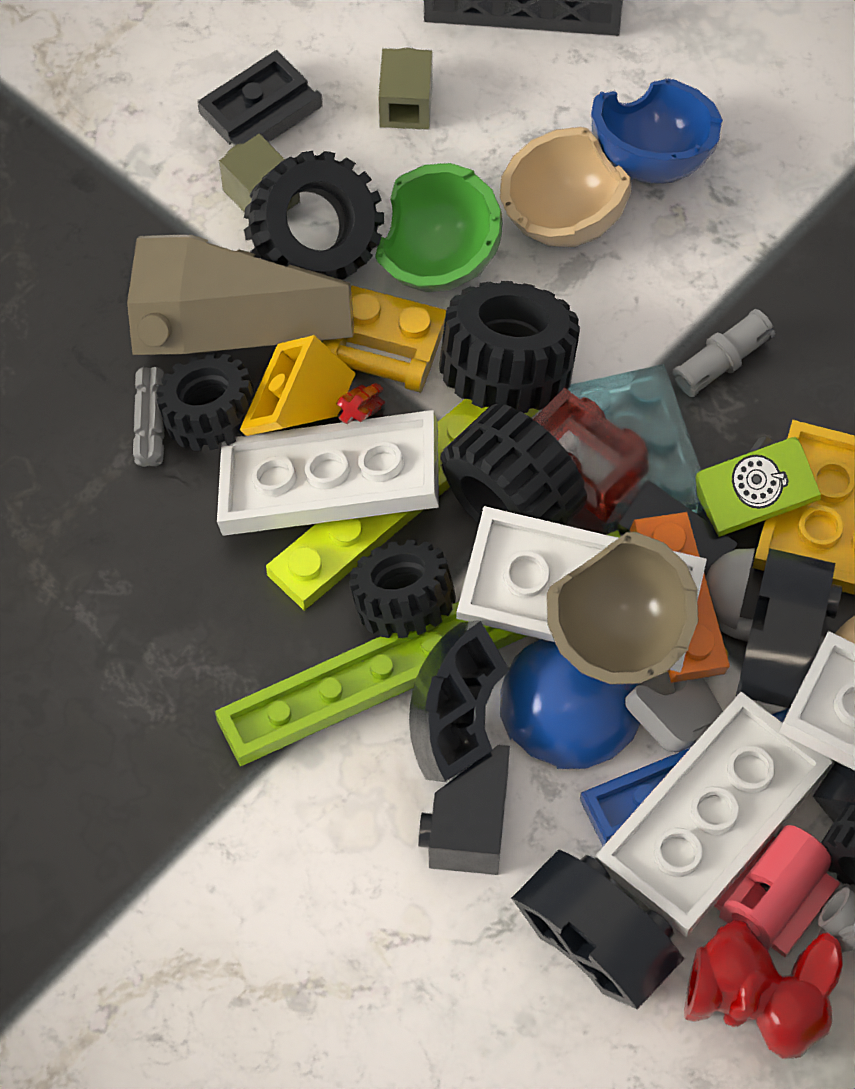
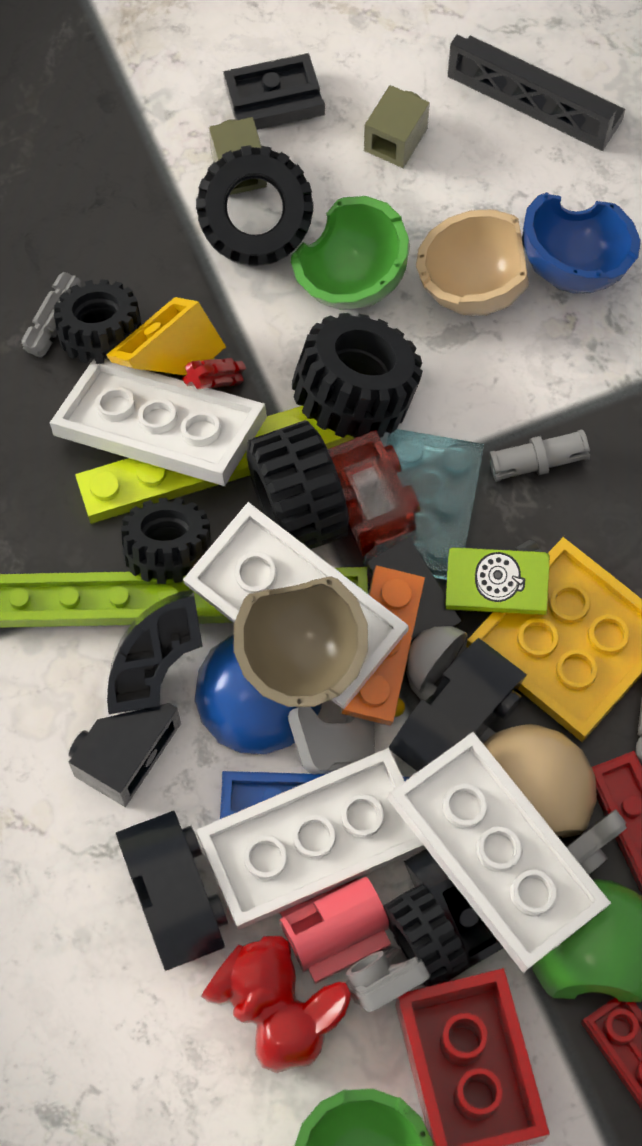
camera: 25 degrees right, 5 degrees up
(214, 299) = (139, 239): dark tan wedge -> none
(395, 328) = (274, 314): yellow plate -> none

